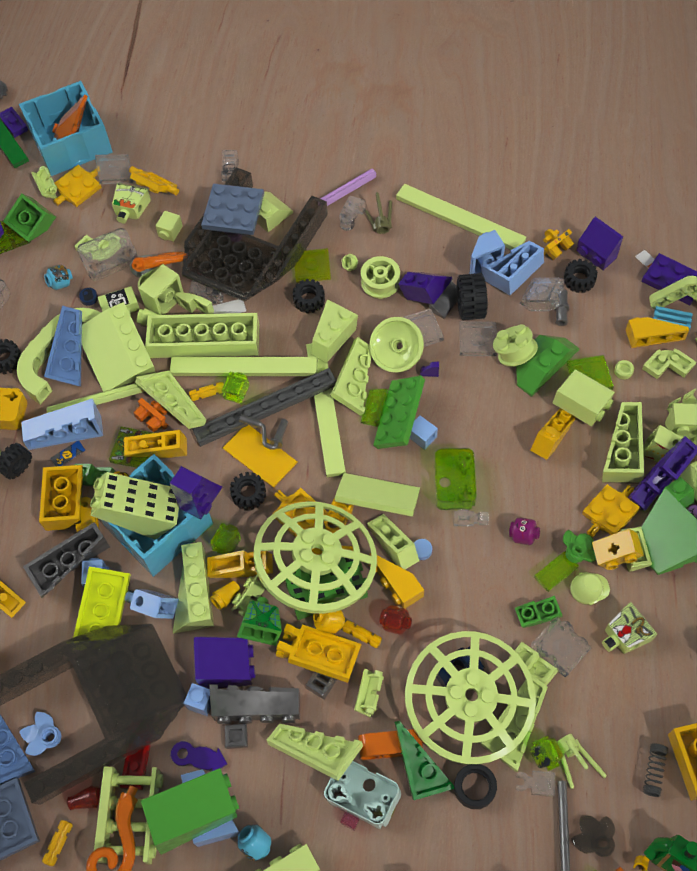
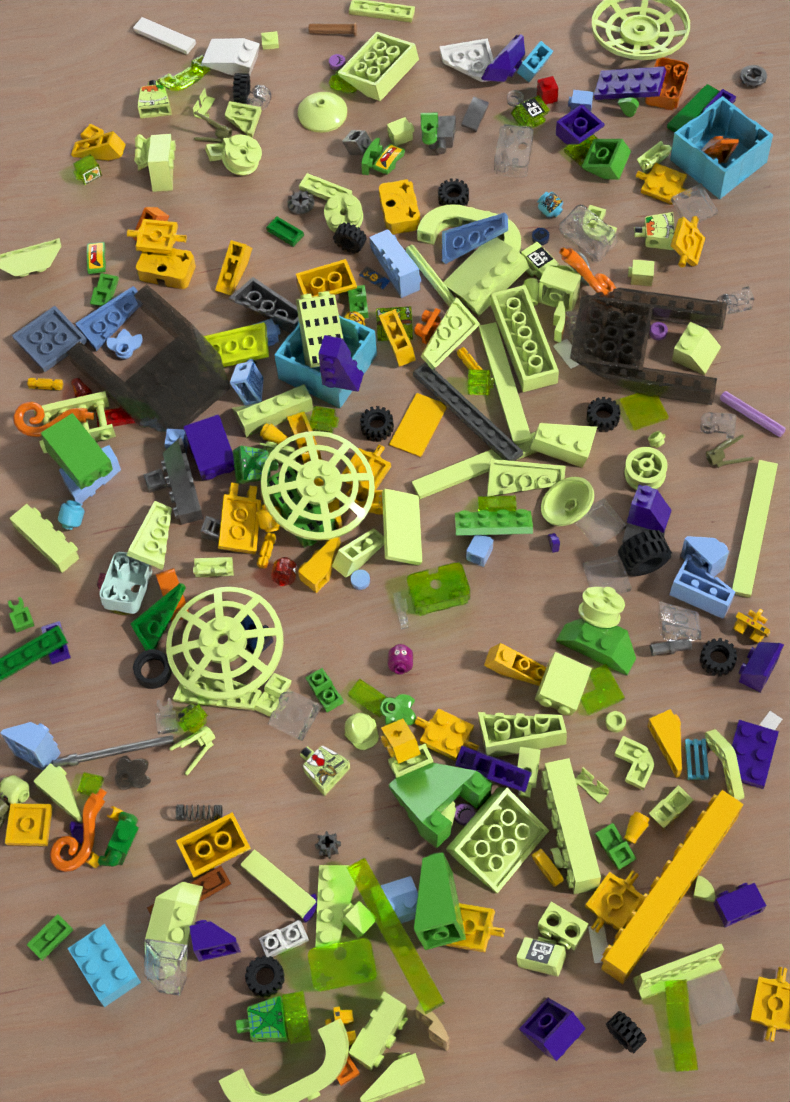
camera: 75 degrees right, 0 degrees up
(199, 757) = (132, 460): dark purple brick -> none
(233, 209) = (671, 314): sand blue plate -> none
(275, 442) = (440, 432): flat silver piece -> none

